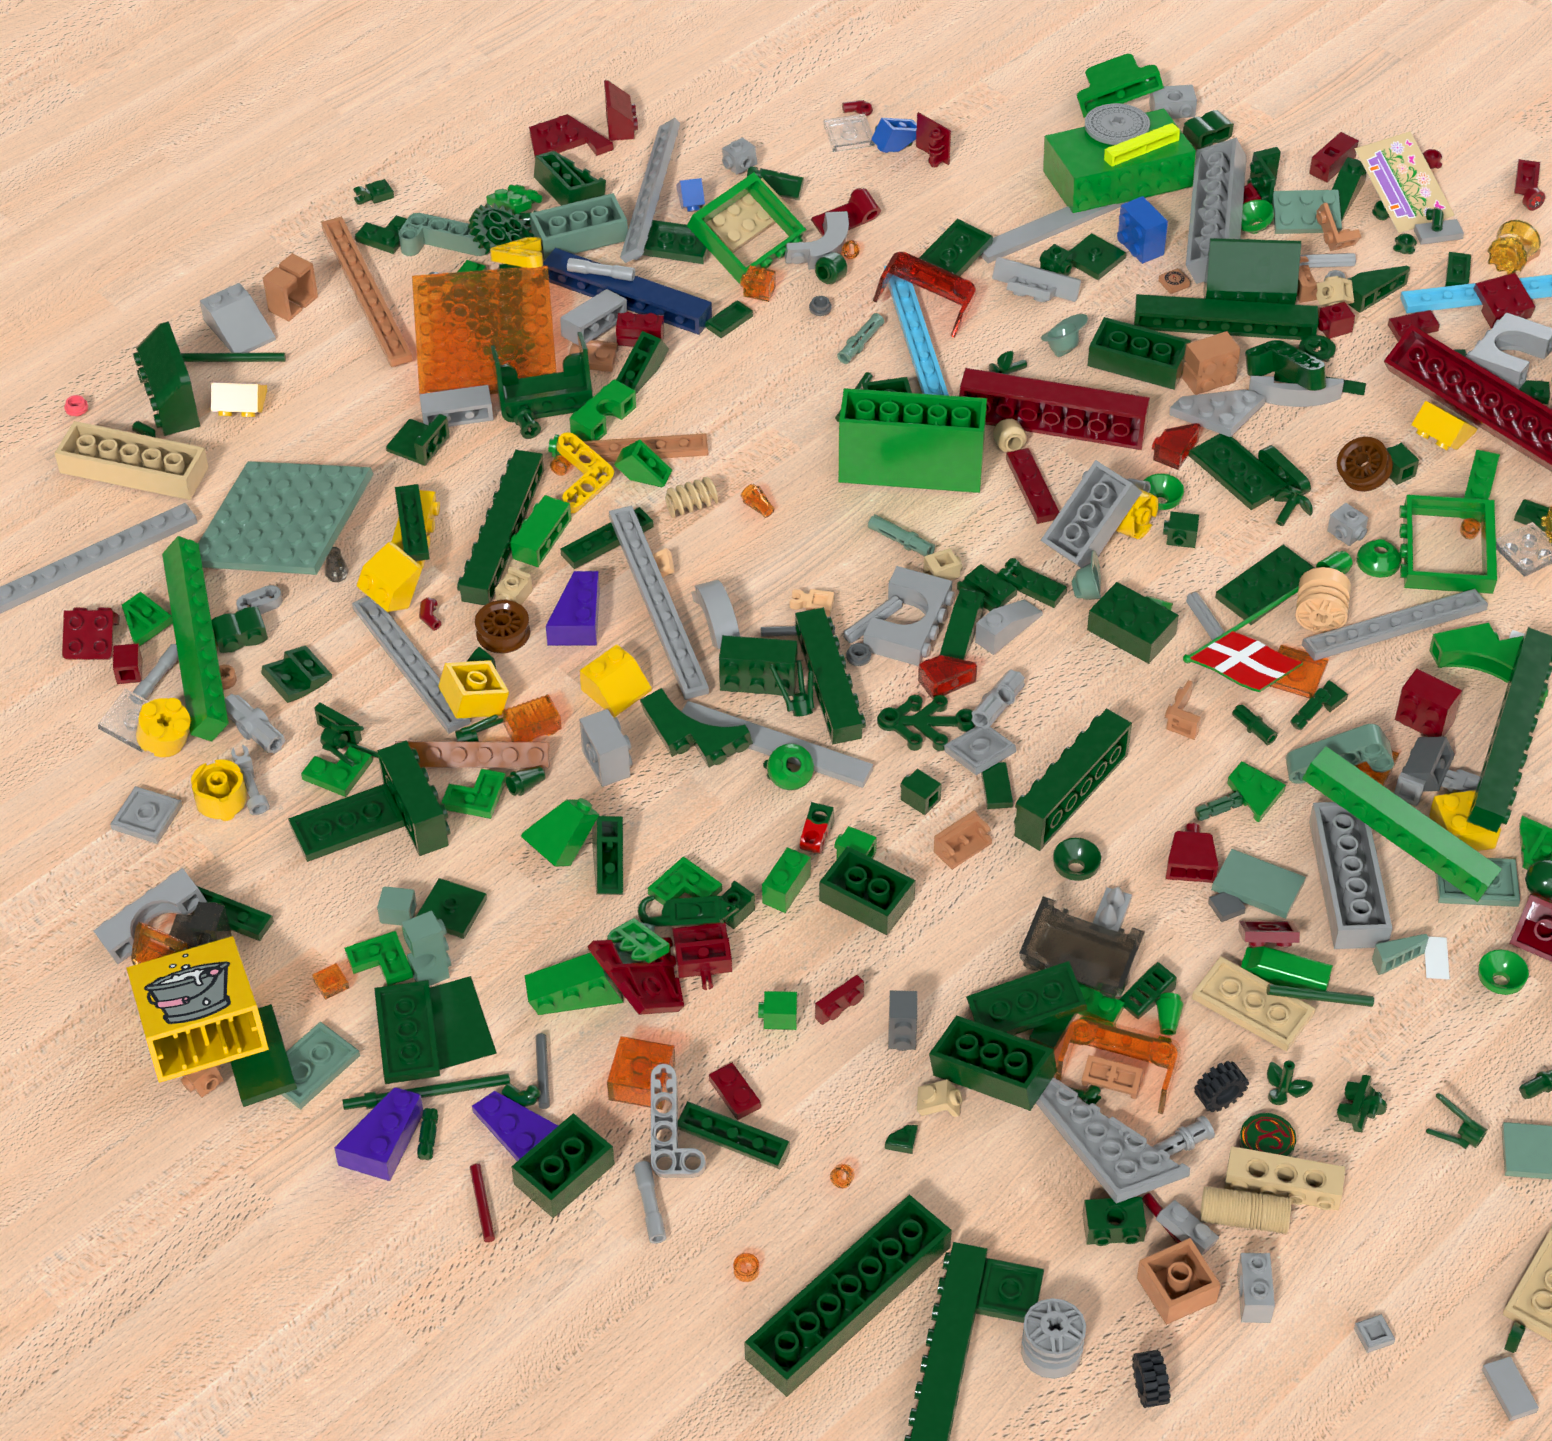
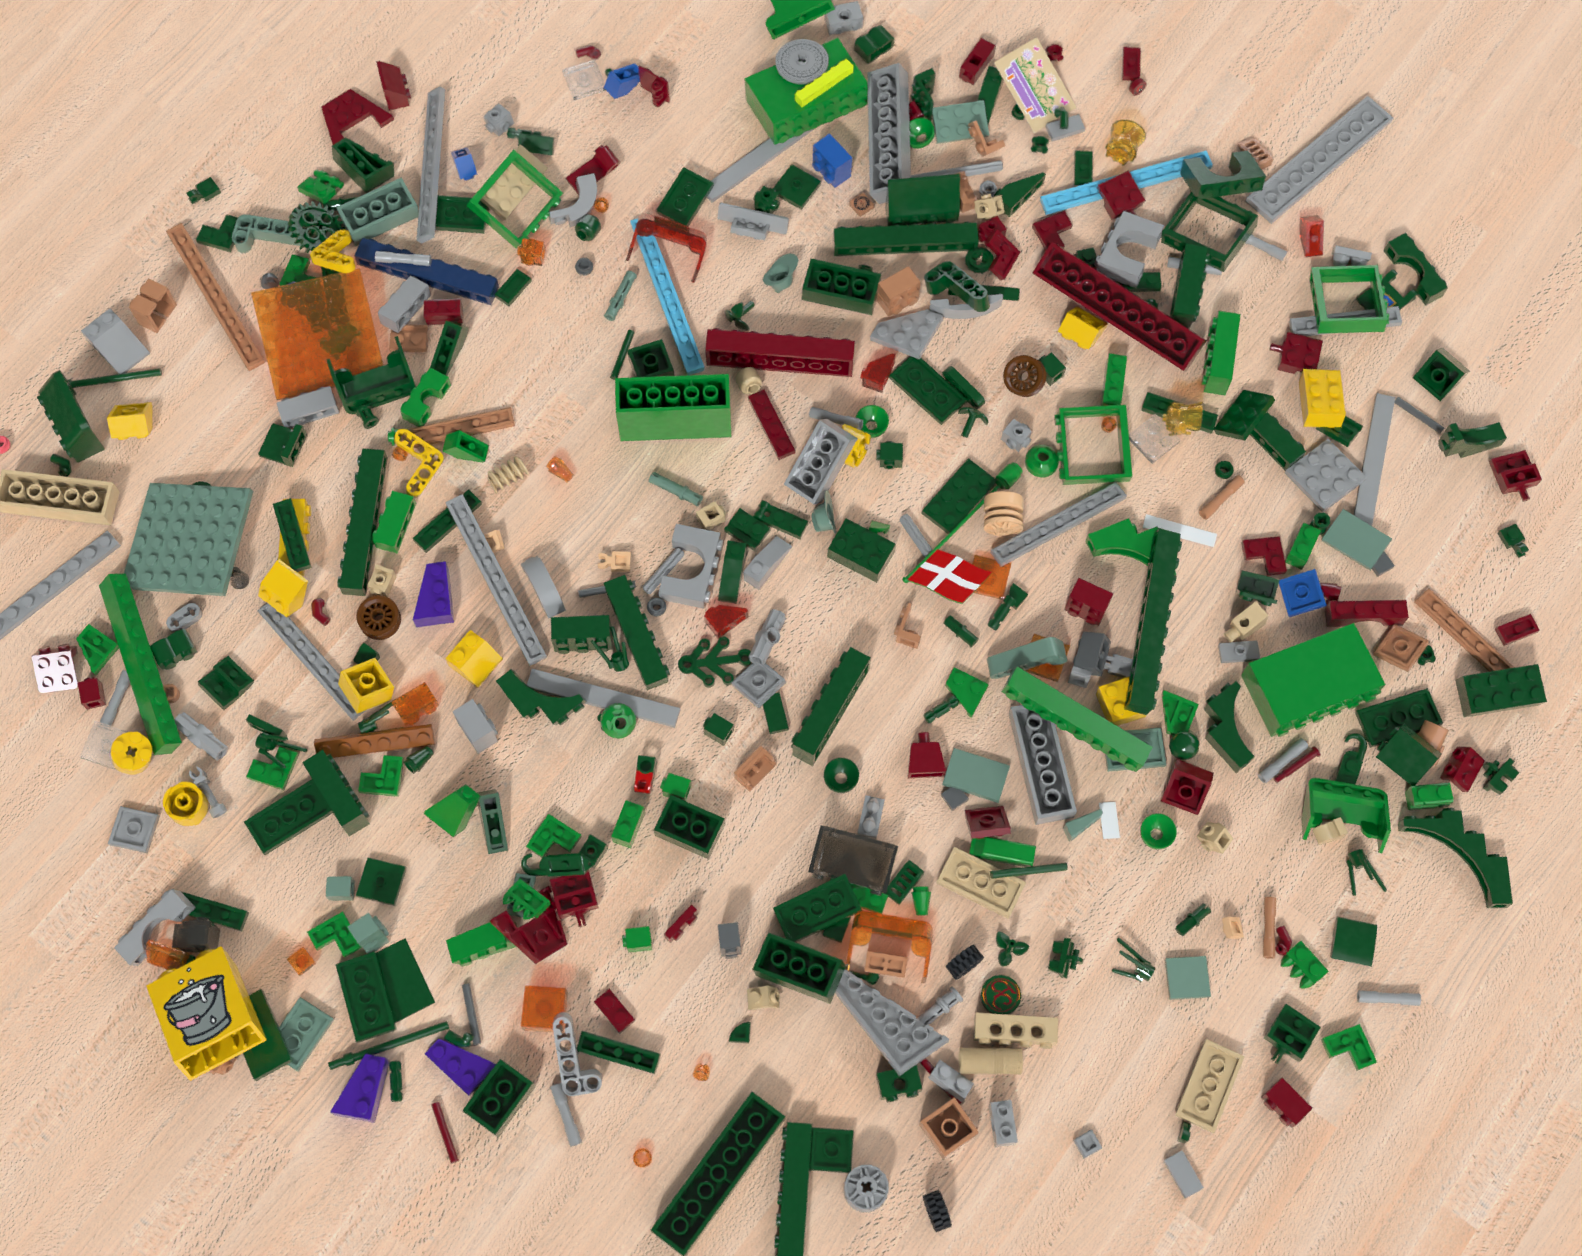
camera: 10 degrees left, 20 degrees up
(1351, 341) = (1005, 252): none -> dark red plate

